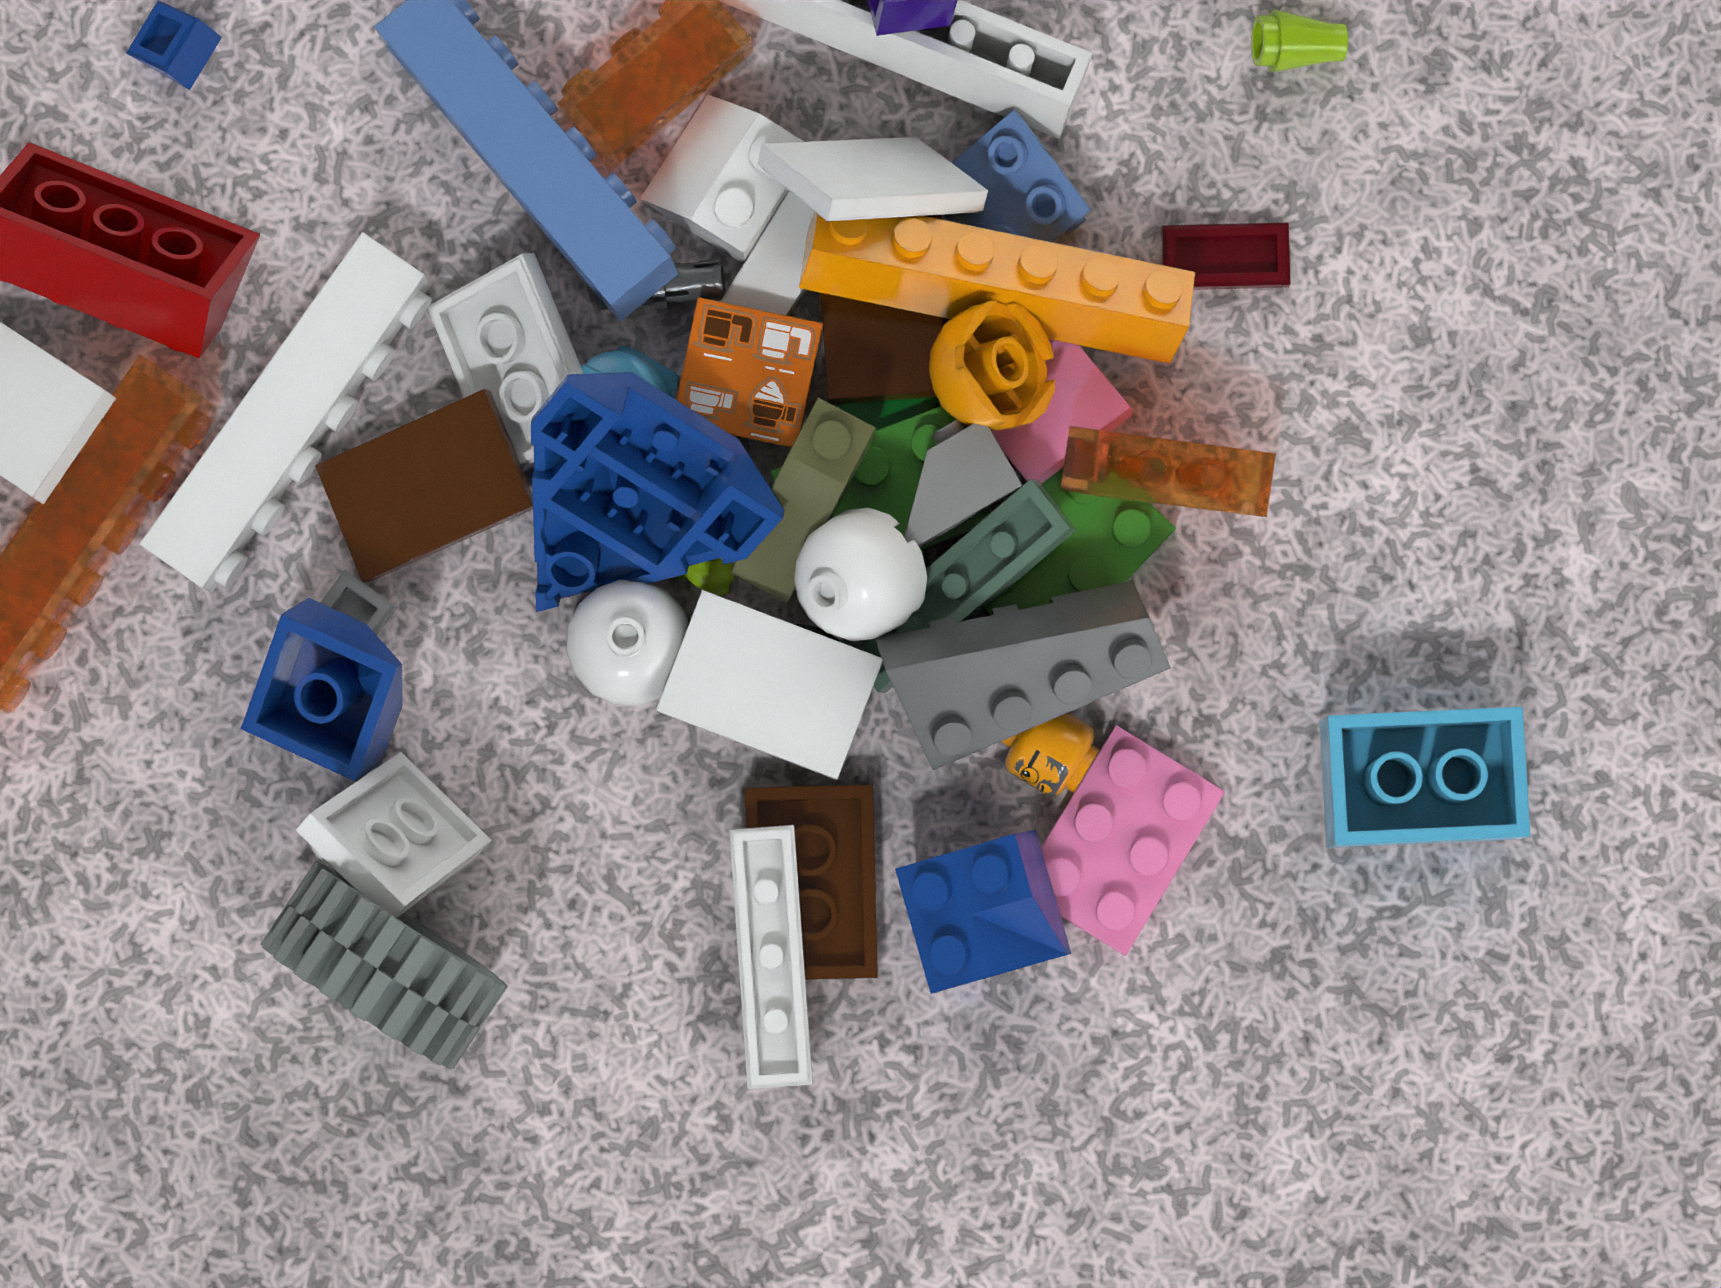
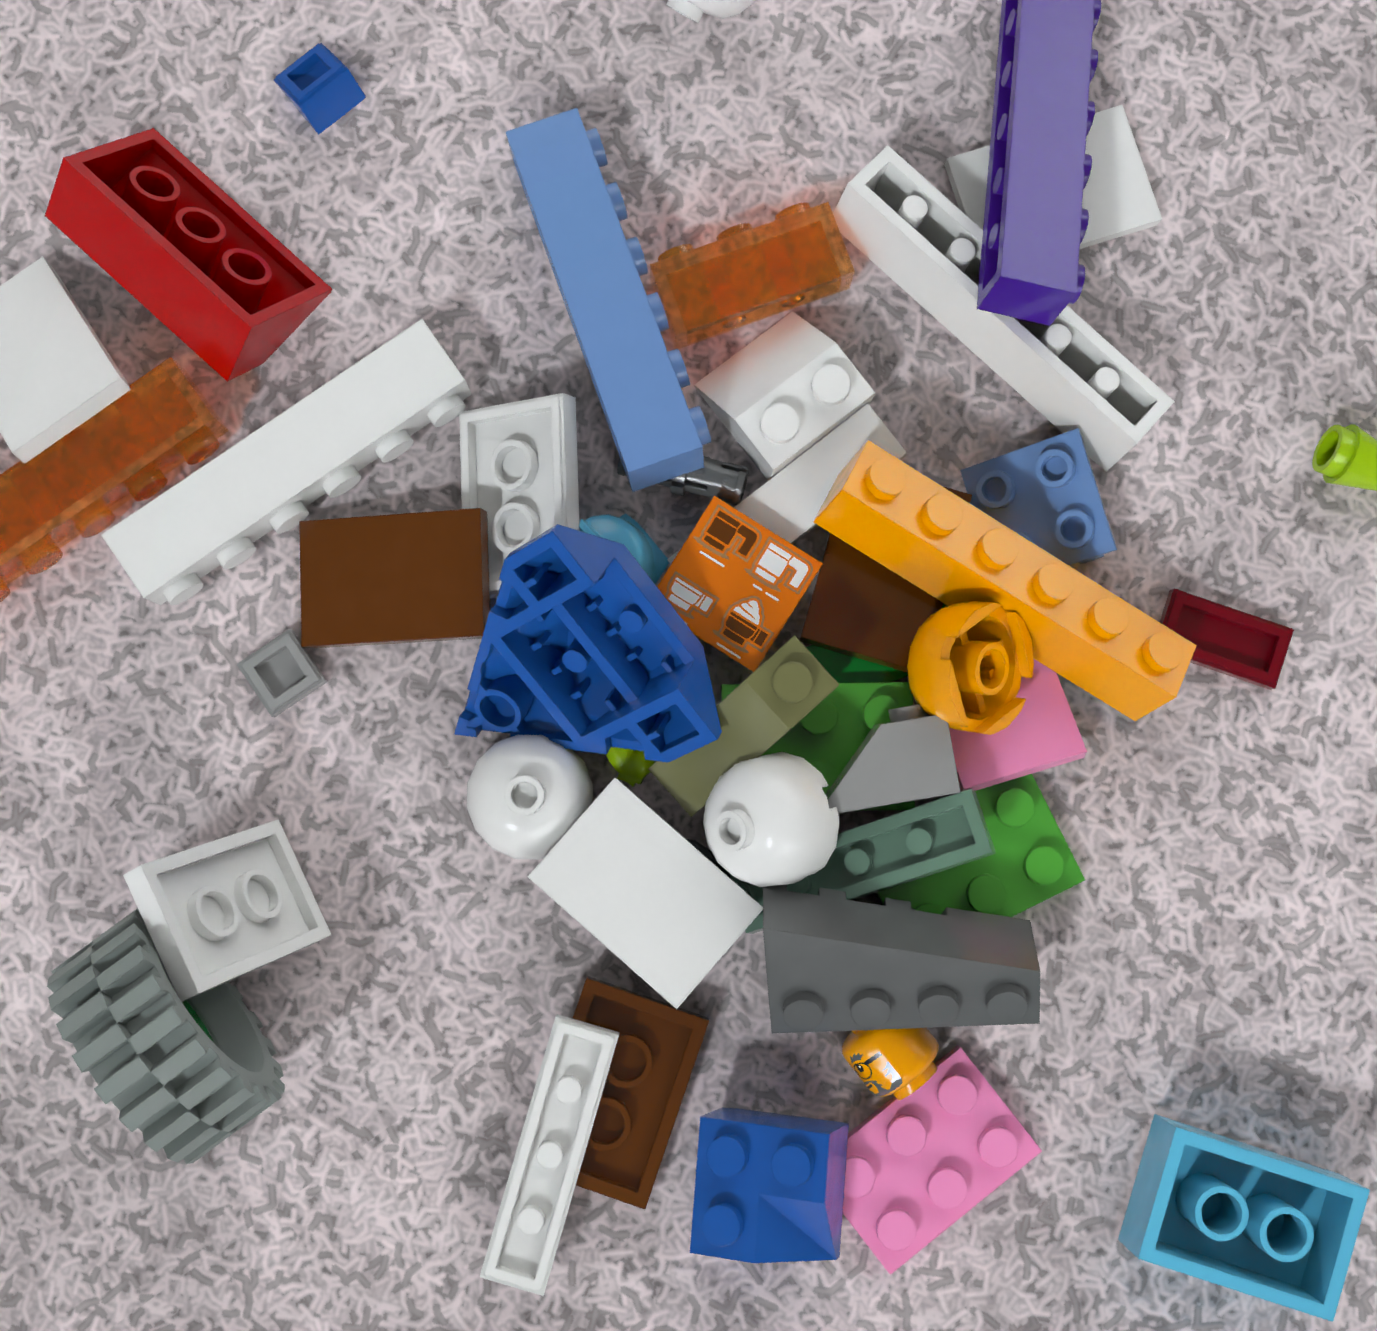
camera: 15 degrees right, 0 degrees up
(327, 691) = (222, 740): blue slope -> none
(872, 178) = (921, 443): white tile -> none
(1167, 471) = (1102, 828): clear orange brick -> none

